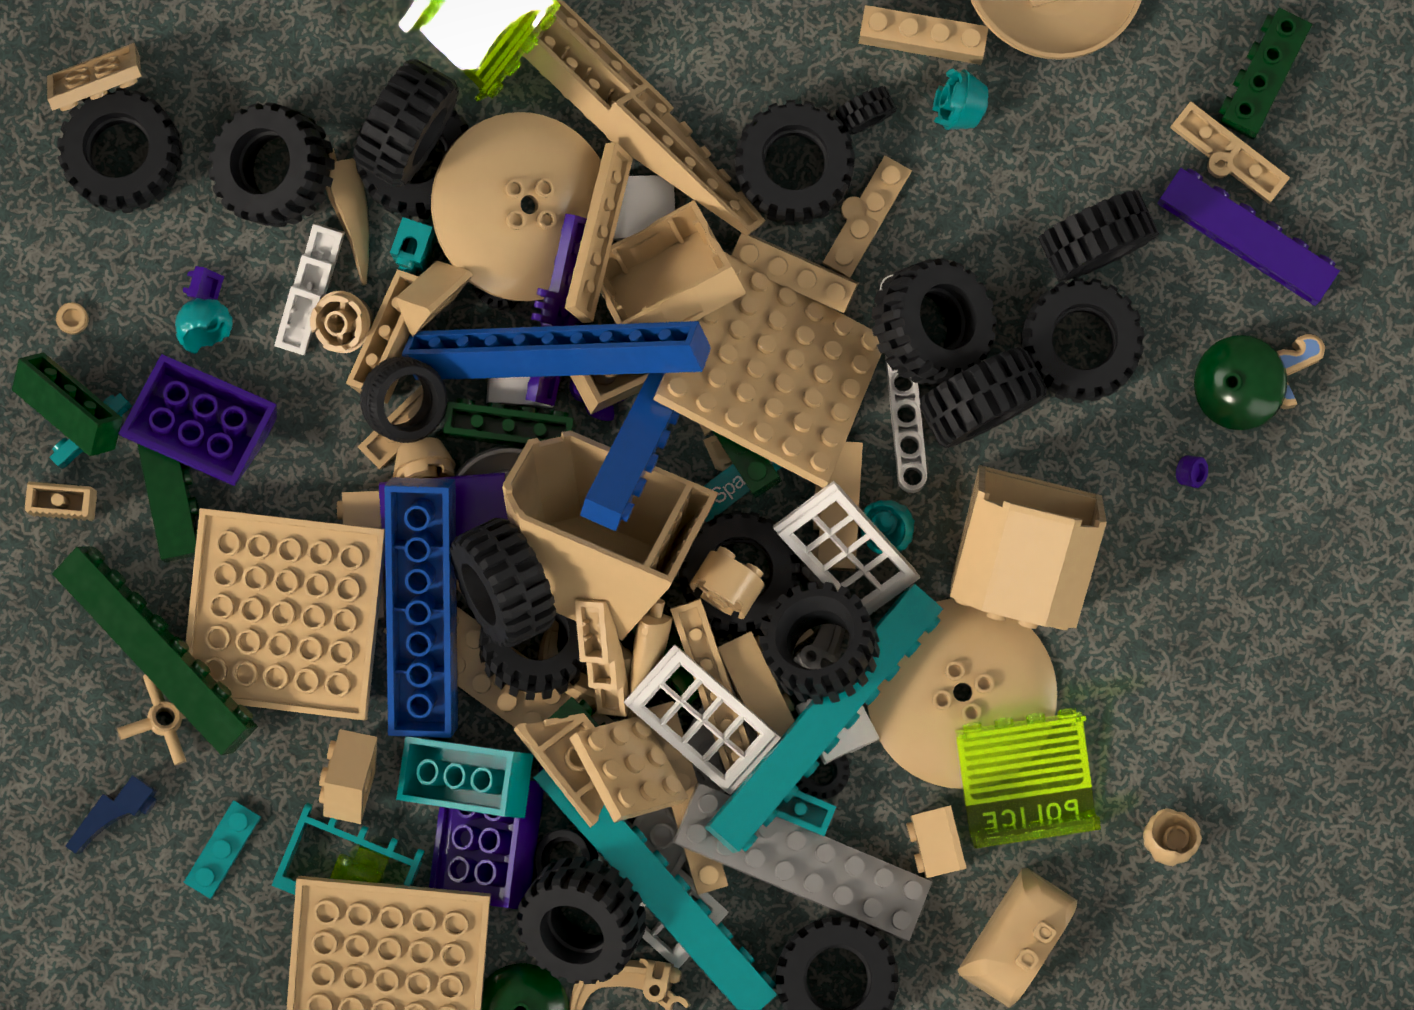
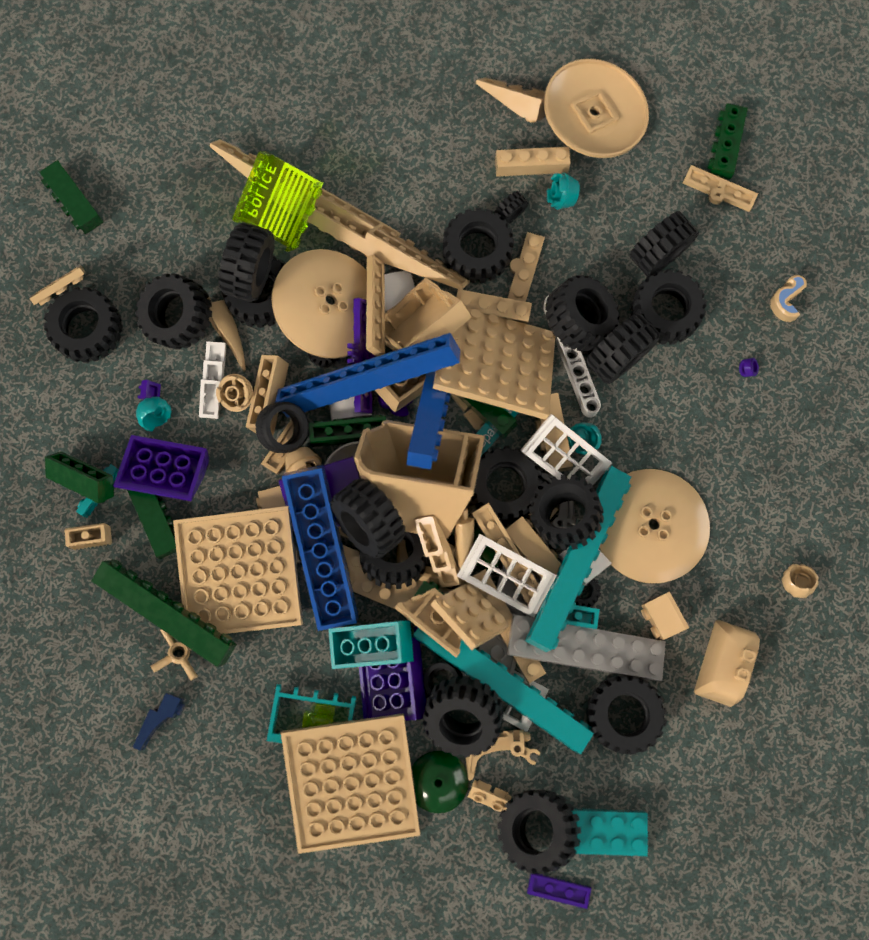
camera: 20 degrees left, 5 degrees down
(72, 318) = (75, 428): tan tile -> none
(222, 849) = (231, 725): teal plate -> none
(348, 776) = (299, 661): tan brick -> none
(413, 246) = (268, 338): teal brick -> none
(431, 294) = (285, 364): tan slope -> none
(728, 583) = (503, 488): tan brick -> none
(1026, 778) = (705, 566): clear neon green panel -> none
(1027, 549) = (674, 430): tan windscreen -> none
(1248, 236) = (745, 231): dark purple brick -> none
(1259, 387) = (772, 321): dark green dish -> none

